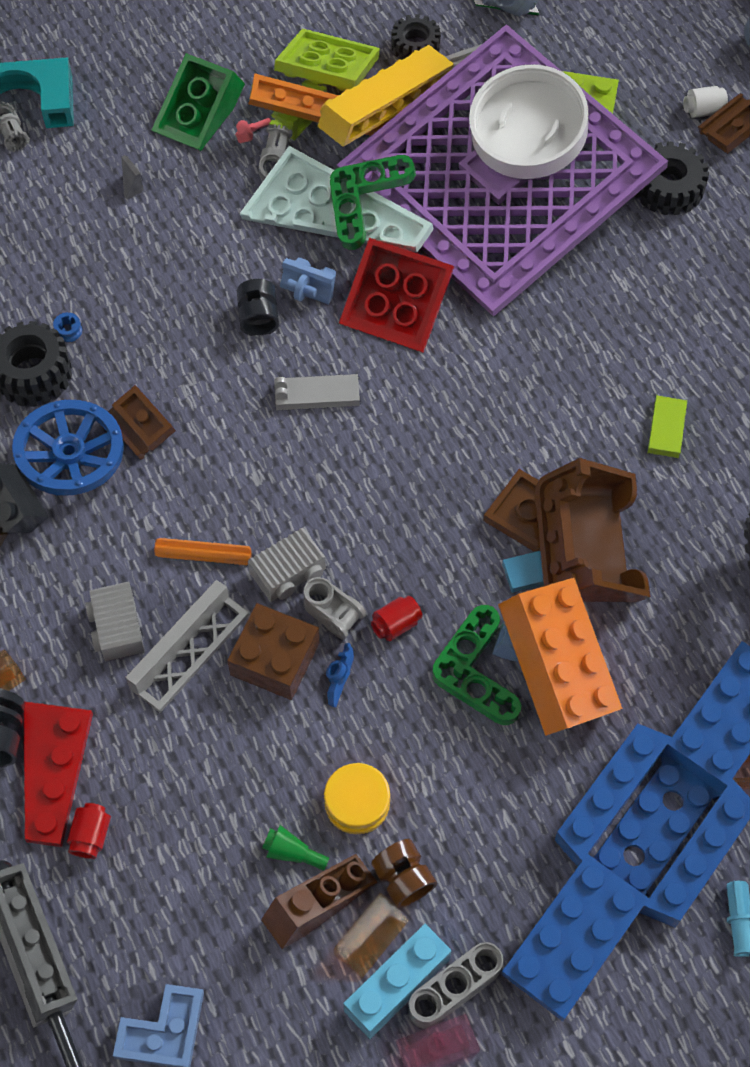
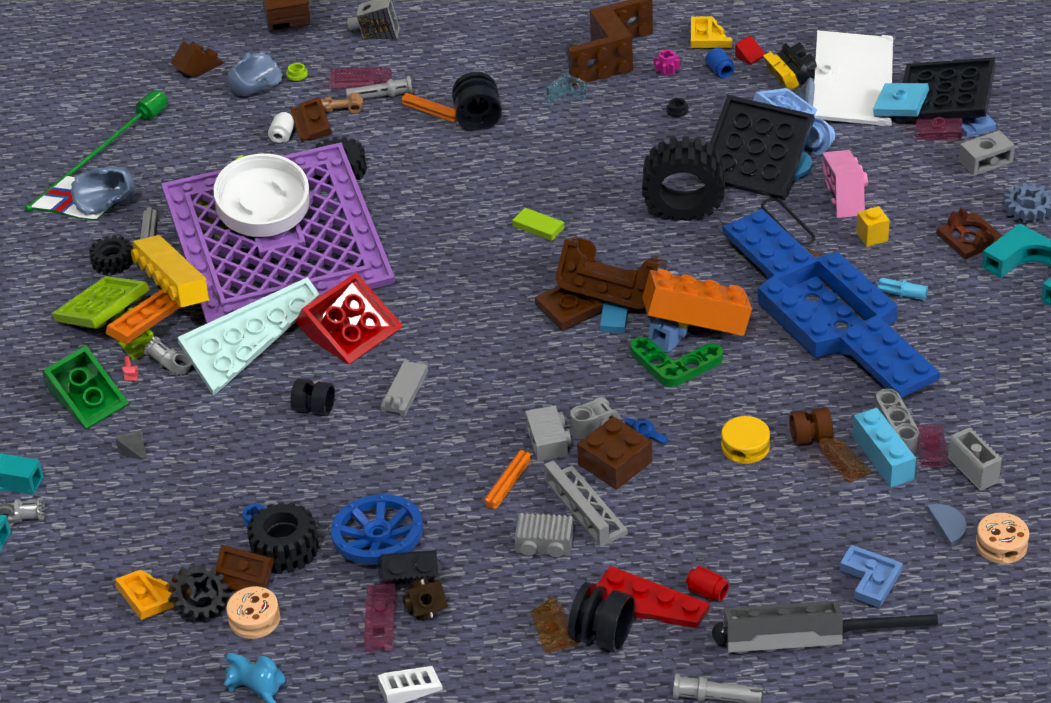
camera: 65 degrees left, 20 degrees down
(140, 422) = (372, 483): reddish brown plate -> none
(287, 847) = (763, 484): green cone -> none
(308, 281) = (304, 366): medium blue hips -> none
(316, 900) = (812, 476): reddish brown slope -> none
(358, 185) = (248, 305): green beam -> none
(396, 618) = (618, 388): red brick -> none

